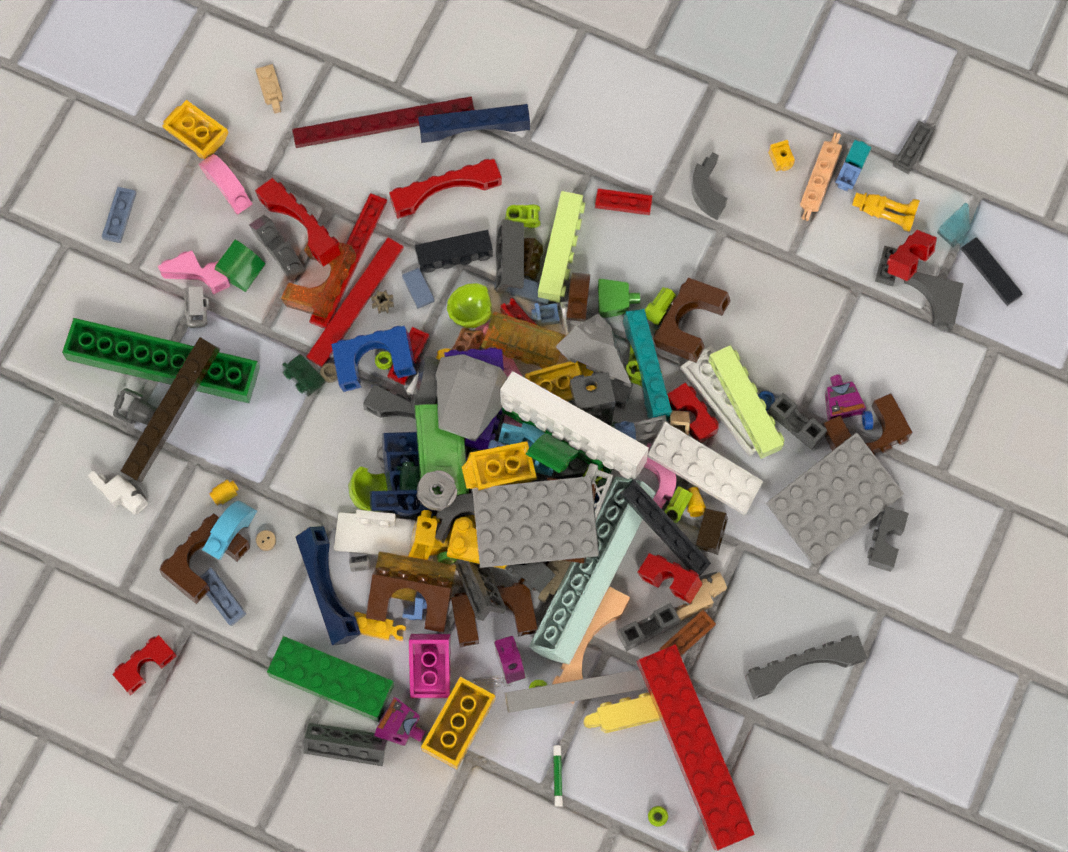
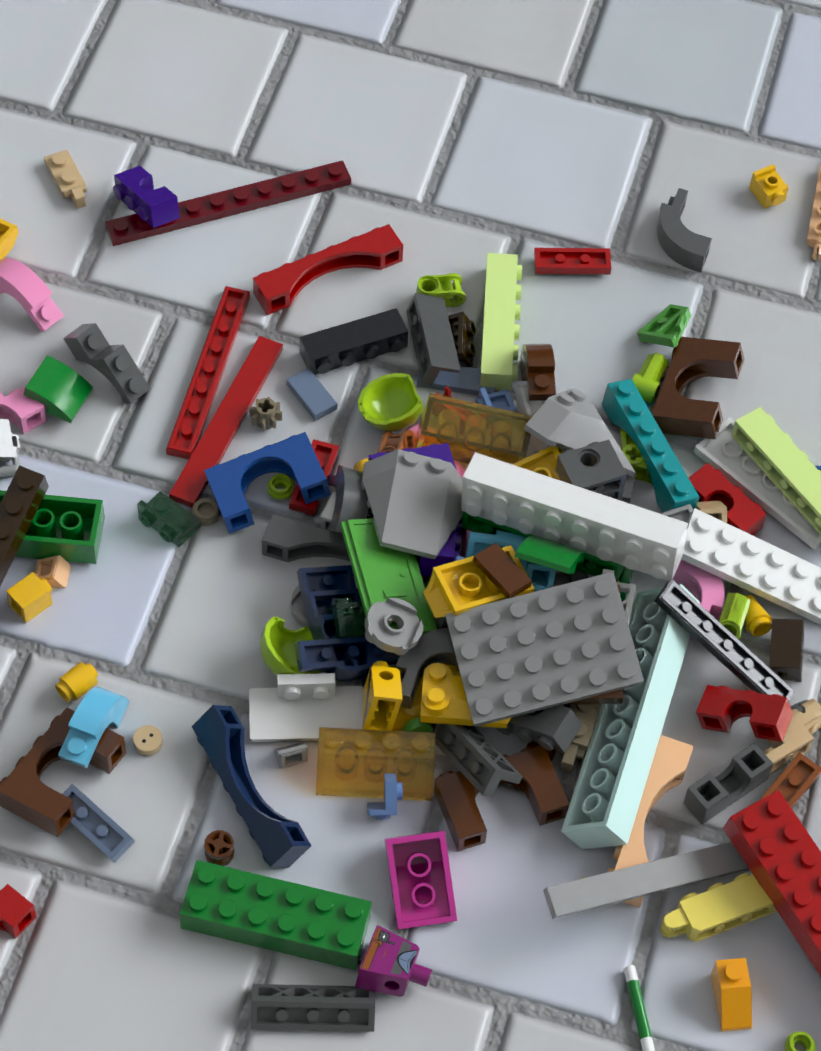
camera: 10 degrees left, 15 degrees down
(201, 424) = (30, 597): none -> yellow brick
(218, 406) = (53, 570): none -> light nougat slope
(276, 199) = (99, 304): red arch -> none
(300, 622) = (218, 841): none -> reddish brown wheel
(317, 106) = (152, 205): none -> dark purple arch
(320, 299) = (179, 416): clear orange arch -> none
(378, 629) = (335, 837): yellow plate -> none
(435, 591) = (413, 769): reddish brown arch -> none
(458, 723) = (478, 951): yellow brick -> none
(491, 682) = (515, 890): clear axle -> none
(505, 118) = (398, 178): dark blue arch -> none
(507, 654) = (533, 841): magenta torso -> none
(516, 462) = (502, 571): none -> reddish brown tile
(615, 298) = (587, 372): bright green torso -> none
(620, 775) = (732, 994): none -> light orange slope
(680, 266) = (666, 326): none -> bright green wing

